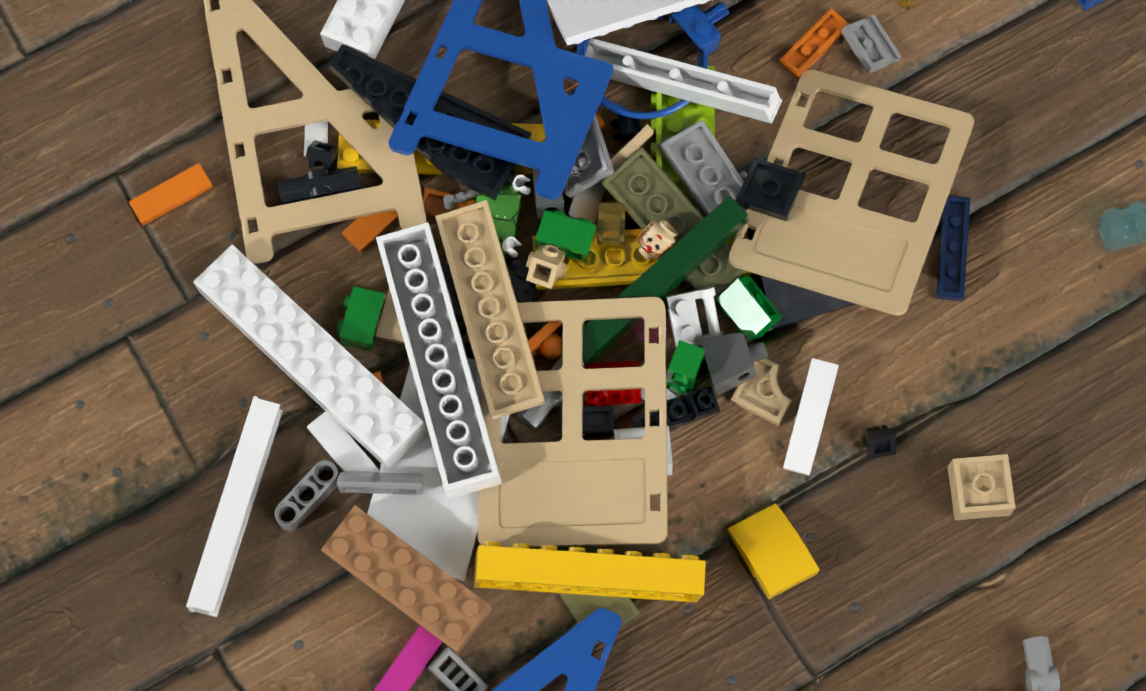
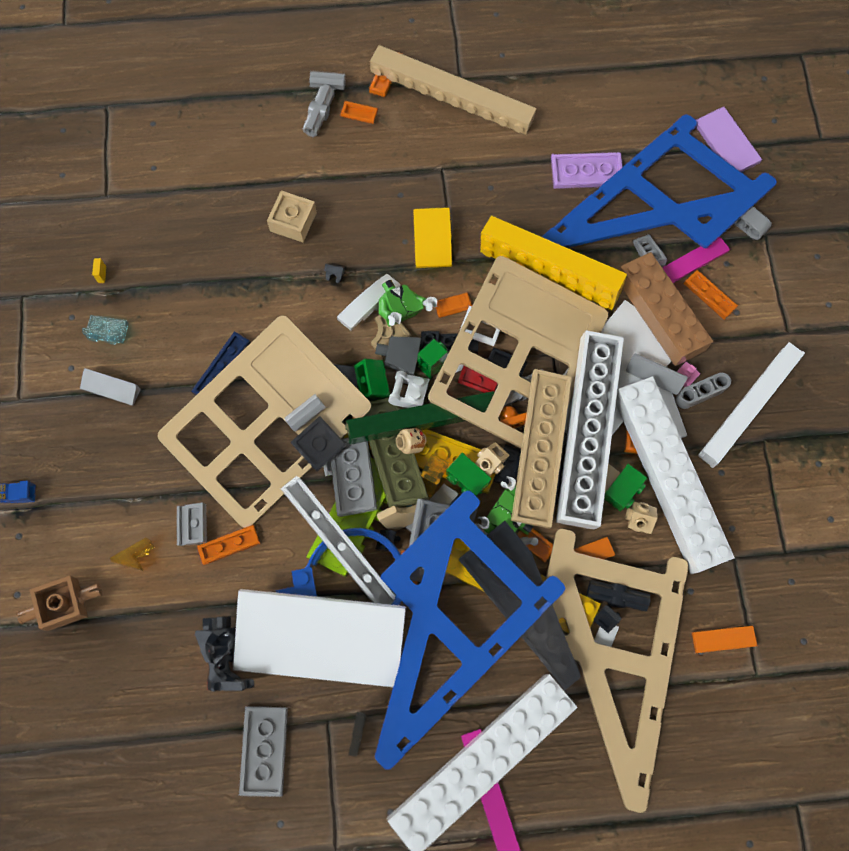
camera: 155 degrees left, 0 degrees up
(327, 288) = (641, 517): none -> tan brick
(335, 512) = (689, 371): none -> bright pink tile
(346, 652) = (710, 294): none -> orange tile
(696, 472) = (453, 305): none -> orange tile
(766, 423) = (402, 303): none -> bright green torso
(806, 211) = (305, 412): none -> light grey axle
(1074, 159) = (109, 387): none -> slope

